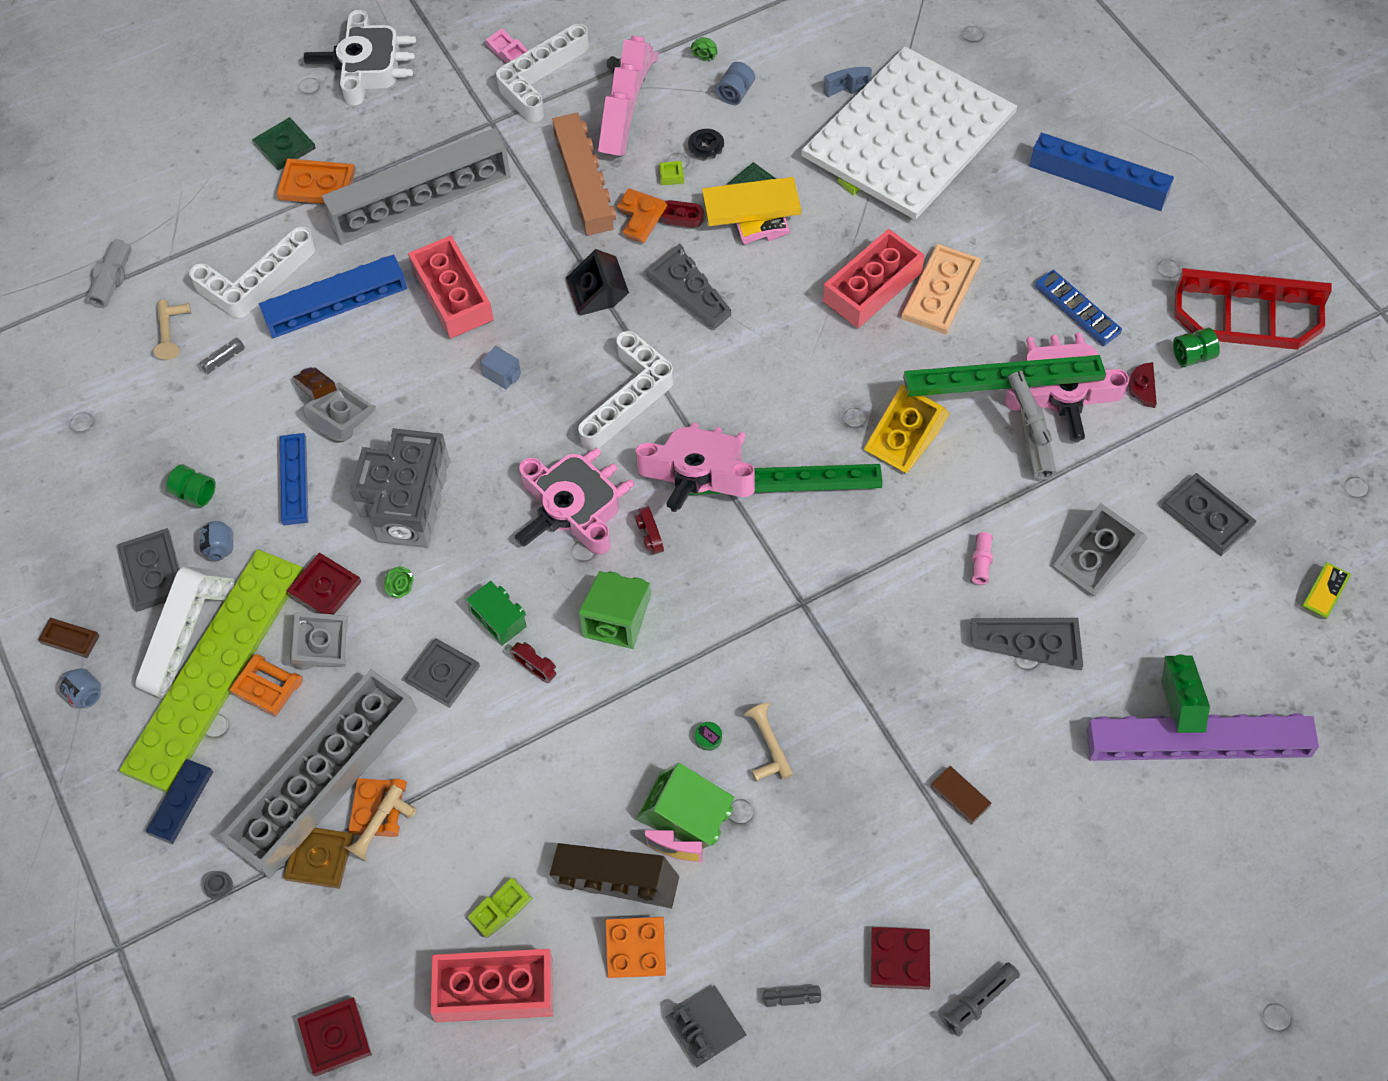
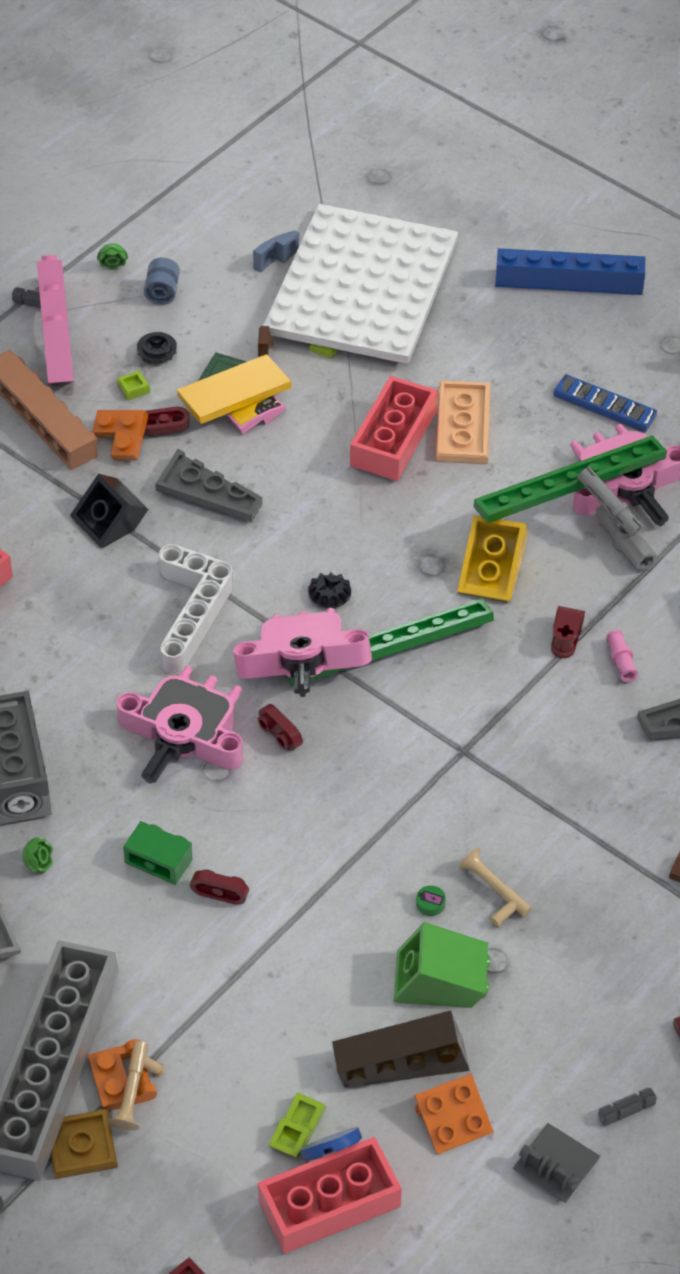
camera: 25 degrees left, 10 degrees down
(442, 672) = (127, 928): dark grey tile -> none
(500, 367) = (46, 619): sand blue brick -> none
(514, 938) = (331, 1143): none -> blue tile
(615, 609) = (282, 811): bright green slope -> none
(665, 843) = (463, 1008): bright pink slope -> none
(744, 419) = (326, 598): none -> black gear
(797, 164) = (264, 341): none -> reddish brown tile
(942, 518) = (566, 631): none -> dark red piece

